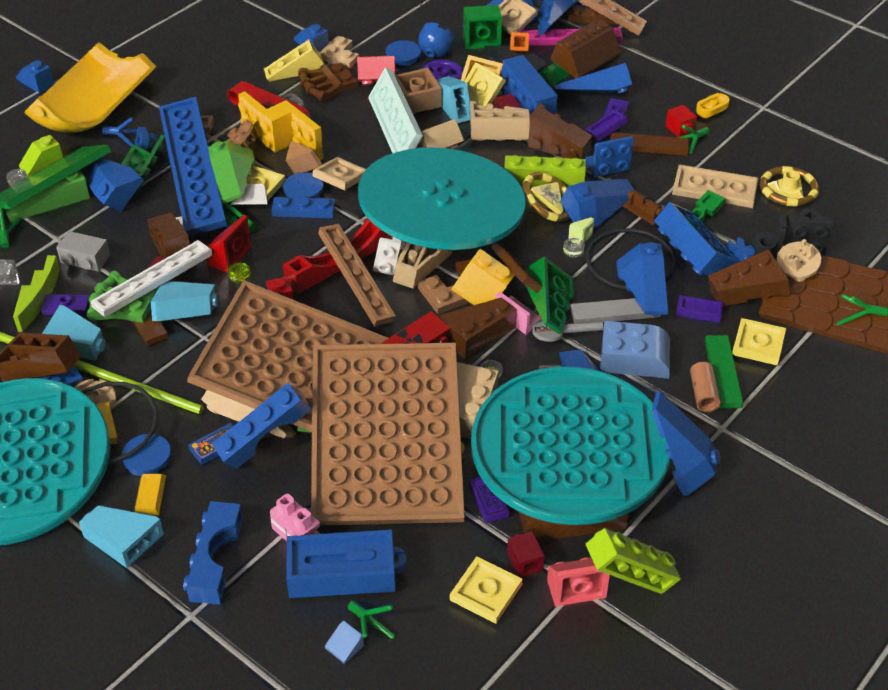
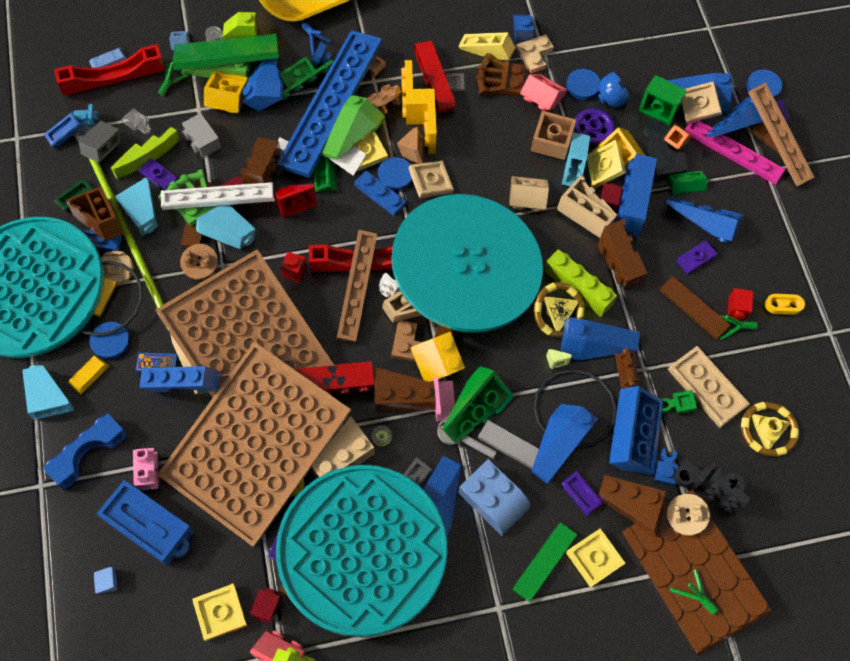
camera: 35 degrees right, 20 degrees up
(76, 208) = (224, 91): none -> yellow slope
(172, 350) = (208, 261): none -> medium nougat plate
(239, 272) = (288, 224): clear neon green tile -> none
(366, 616) = (132, 567): green plant -> none
(394, 113) = (512, 151): light aqua plate -> none
(516, 267) = (470, 363): reddish brown tile -> none
(573, 247) = (541, 367): clear tile -> none
(586, 49) = (728, 179): reddish brown slope -> none
(607, 125) = (673, 268): dark purple tile -> none
(611, 157) = (643, 304): blue bracket -> none
(686, 444) = (434, 614): blue wedge -> none
(705, 387) = (514, 567): nougat pin -> none

